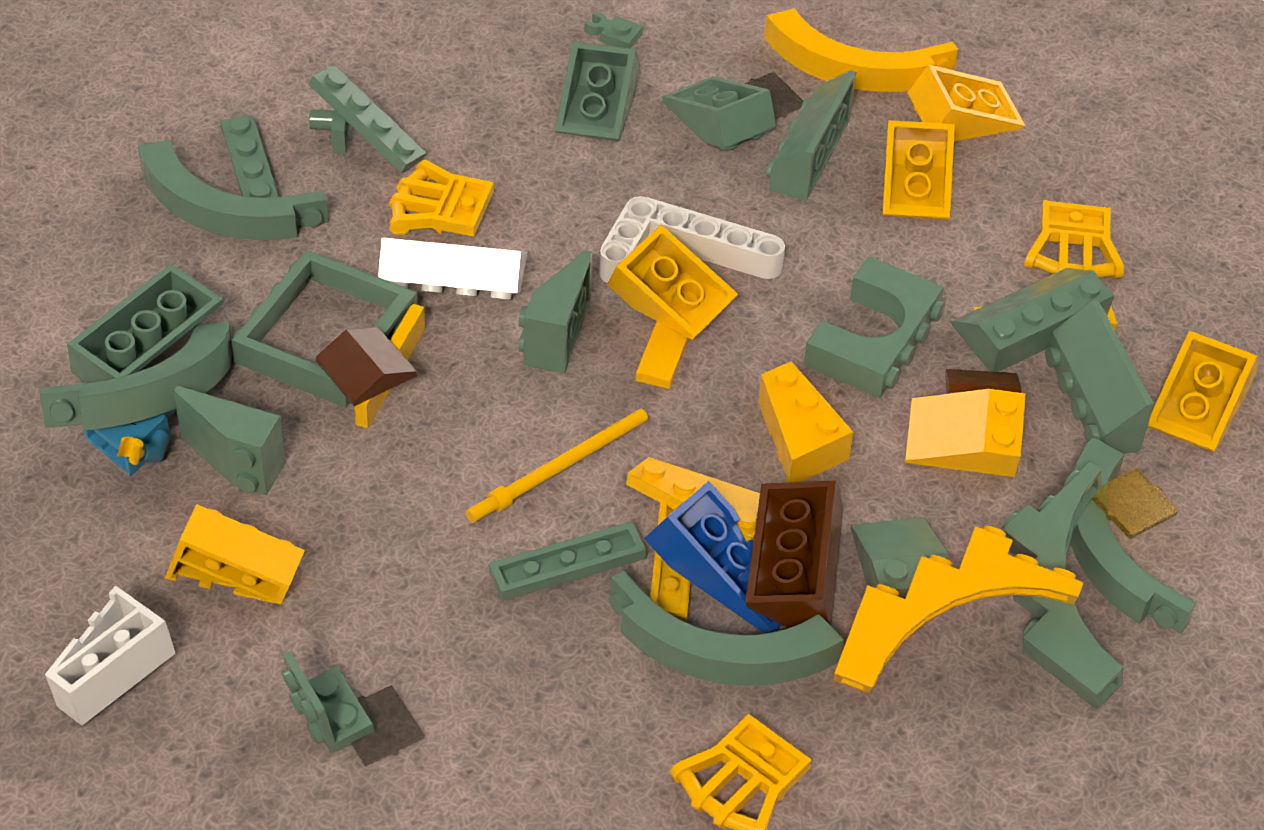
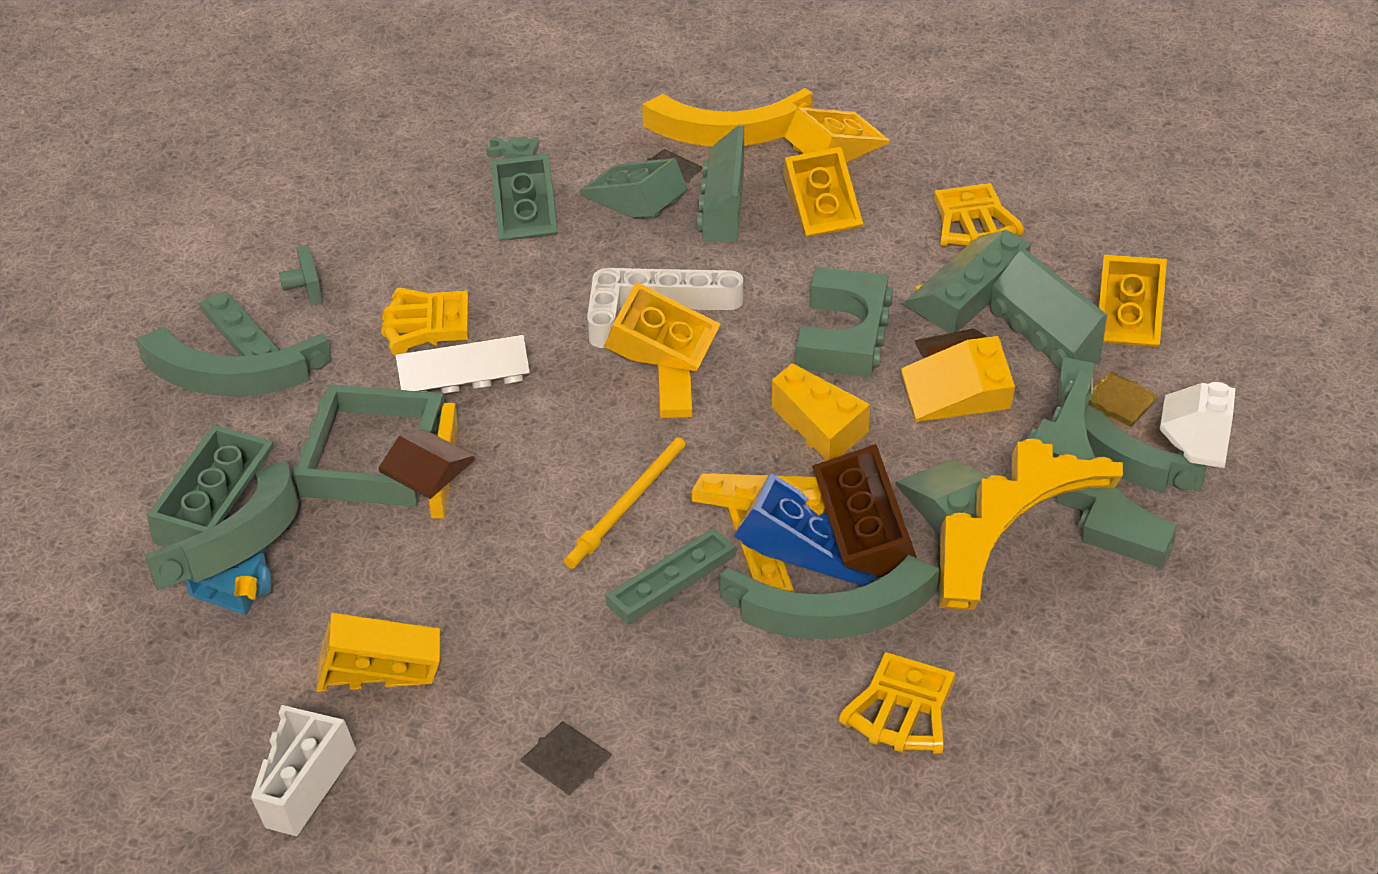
camera: 15 degrees left, 5 degrees down
(232, 438) = (330, 554): sand green slope -> none
(328, 706) = (515, 751): sand green bracket -> none
(367, 118) = (334, 266): sand green plate -> none
(556, 316) = (573, 383): sand green slope -> none
(1207, 557) = (1200, 422): none -> white wedge

